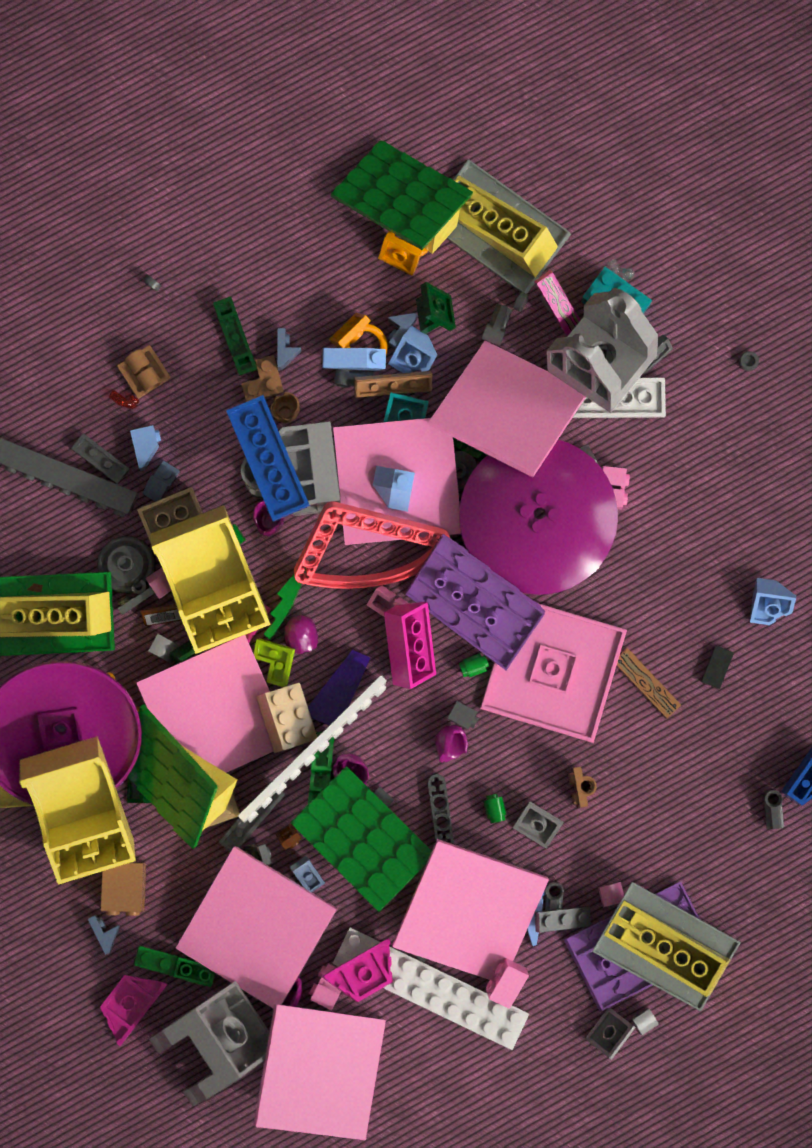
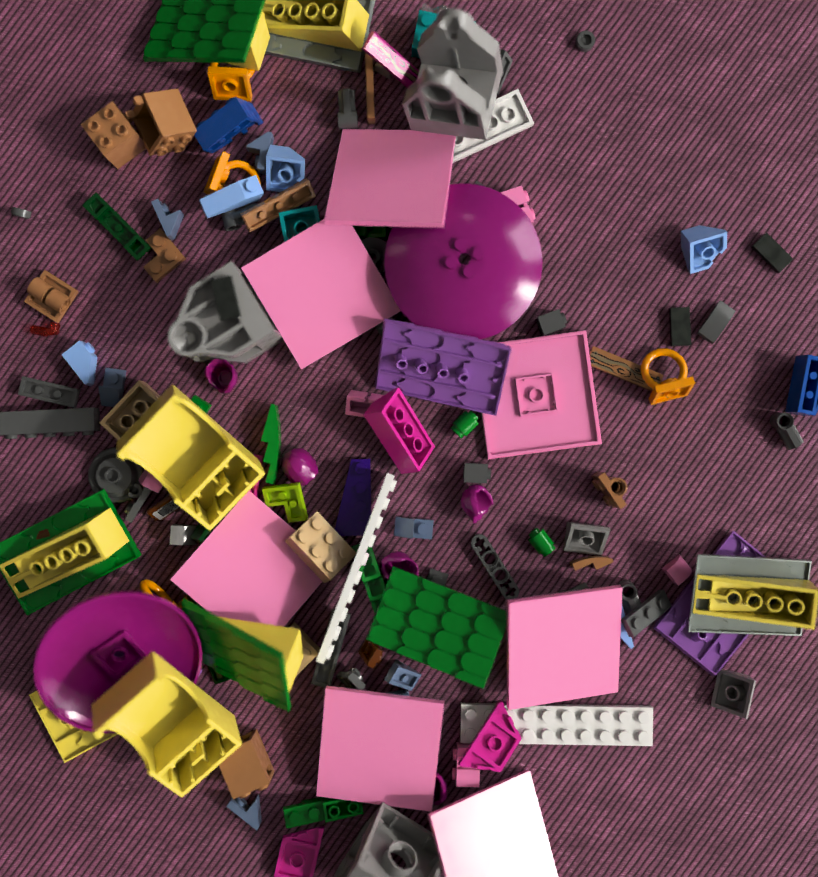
camera: 20 degrees left, 5 degrees up
(268, 458) = (188, 321): blue plate -> none
(274, 254) = (114, 135): none -> medium nougat container
(285, 408) = (192, 270): medium nougat hair -> none
(310, 452) = (226, 298): none -> pearl dark grey tile
(322, 262) = (162, 121): none -> medium nougat container
(369, 580) = (320, 340): coral beam -> none
(379, 288) = (226, 123): none -> blue wedge
(381, 741) = (413, 528): none -> sand blue slope
(394, 487) = (321, 296): light blue slope -> none
(434, 309) = (283, 119): dark green bracket -> none
(507, 983) = (623, 691): bright pink piece -> none
(521, 301) = (358, 79): dark grey tile -> none
(526, 316) = (370, 89): none -> medium nougat tile
(538, 851) = (596, 561): none -> medium nougat slope
(597, 608) = (551, 322): none -> dark grey brick
(644, 1021) = (756, 667): light grey brick -> none
(680, 719) = (669, 388): none -> light orange tile
(752, 678) = (716, 322): none -> dark grey slope

